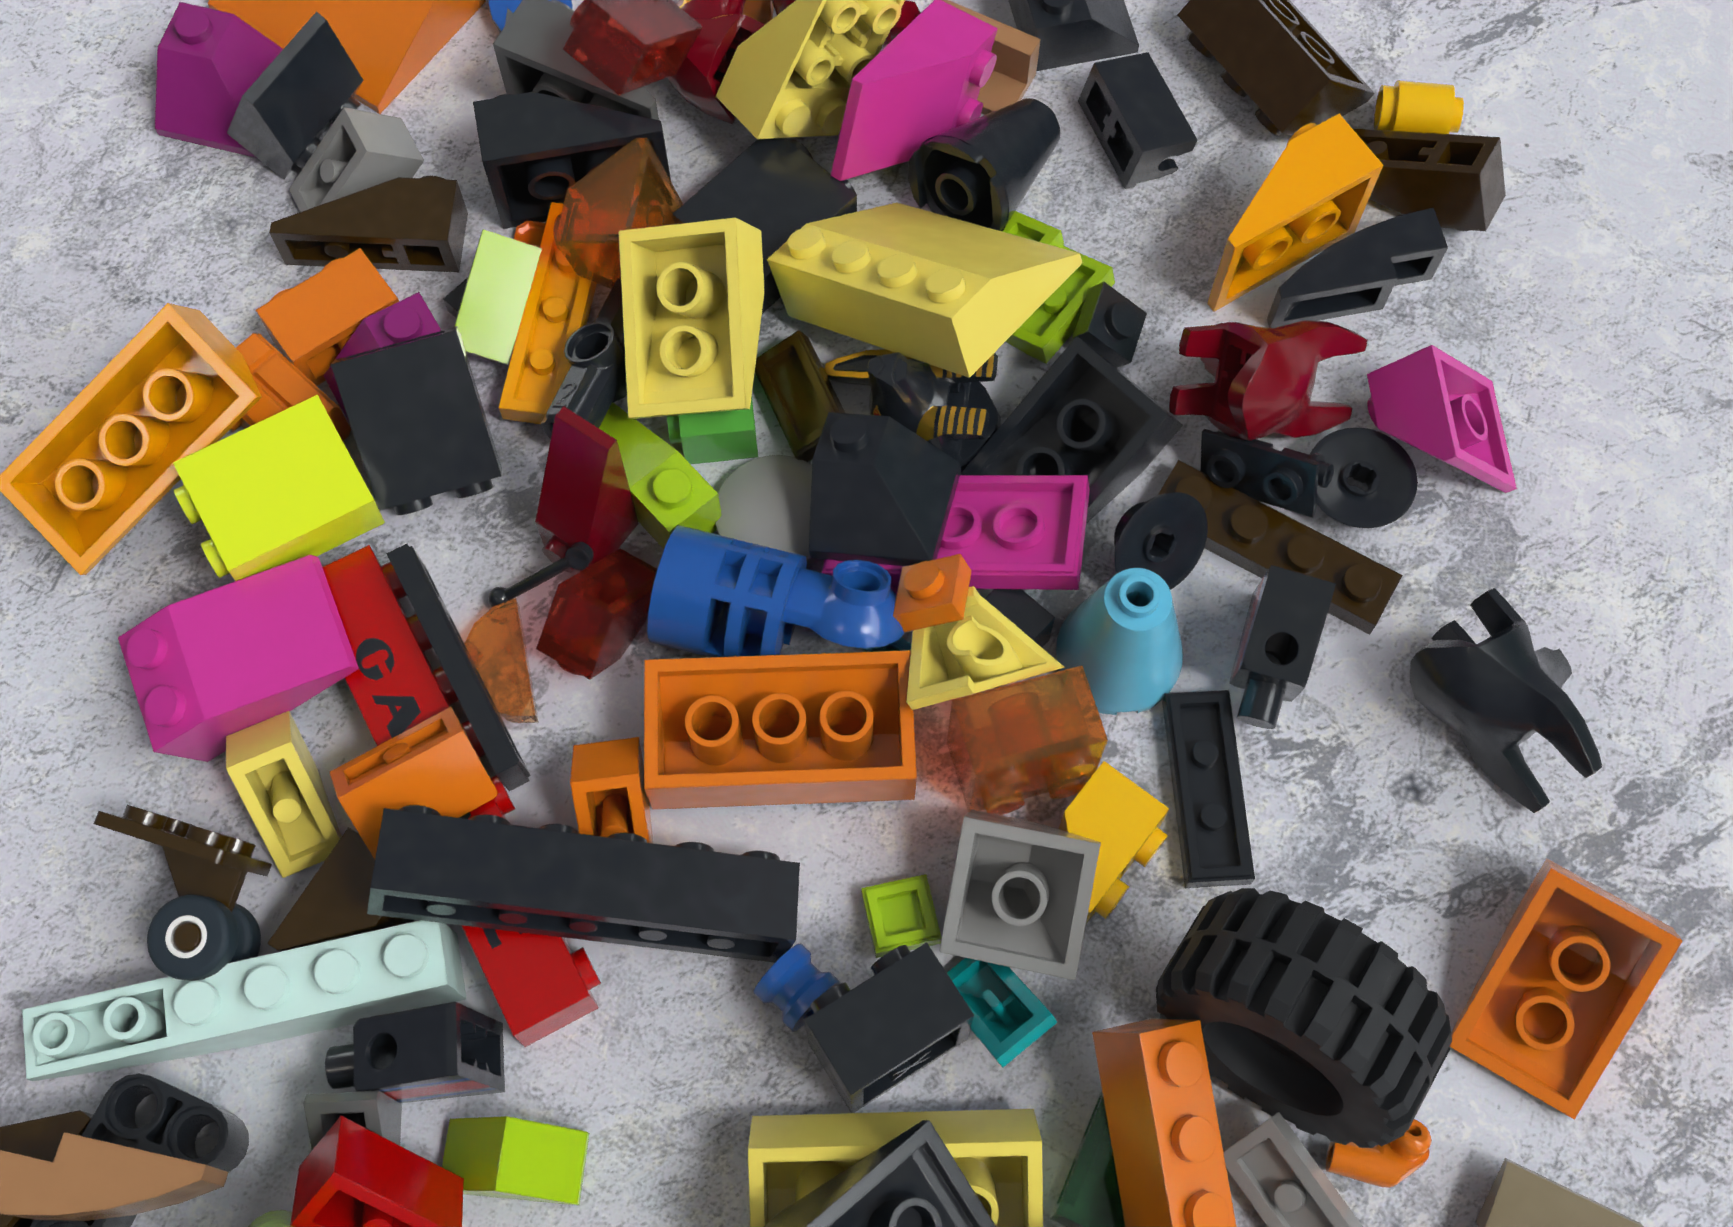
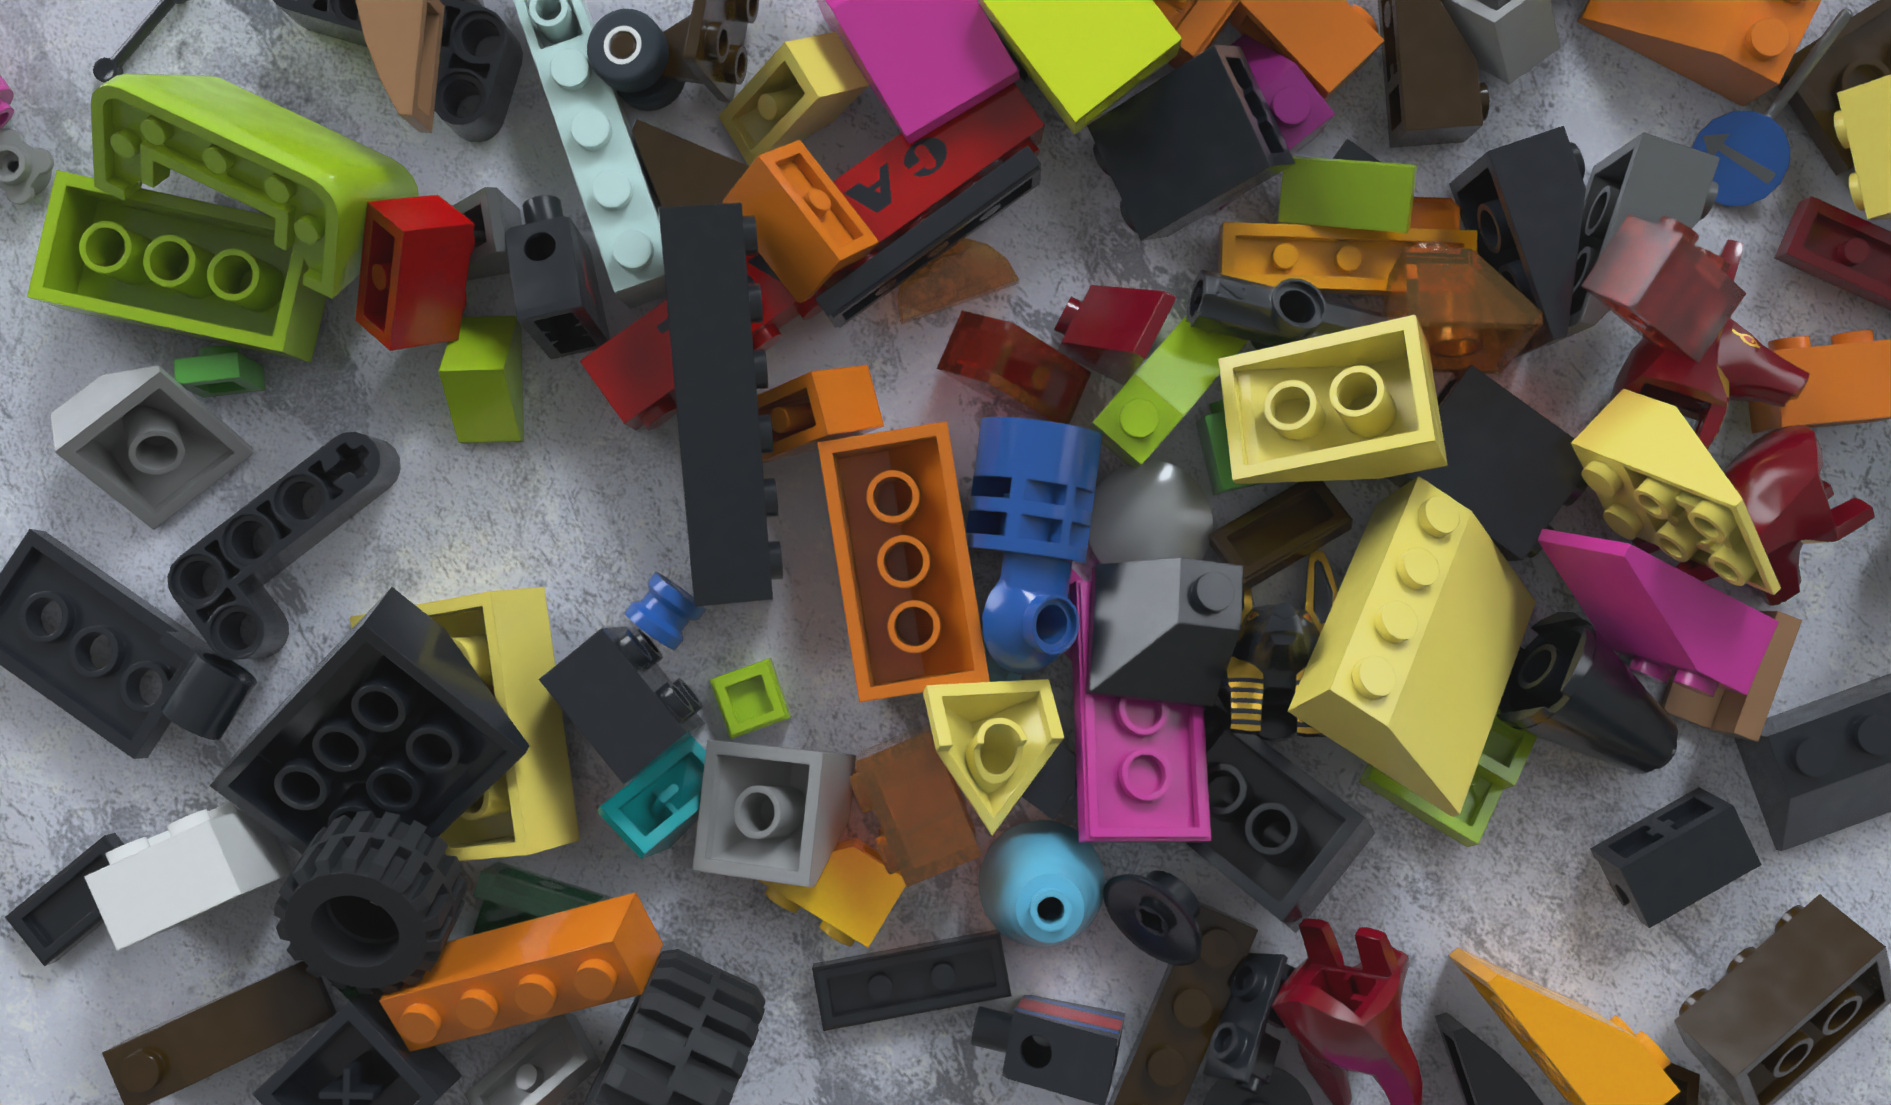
camera: 85 degrees right, 20 degrees up
(576, 557) = (1055, 335): black hinge -> none
(932, 593) = (1053, 696): orange plate -> none
(1110, 324) = (1407, 846): black plate -> none

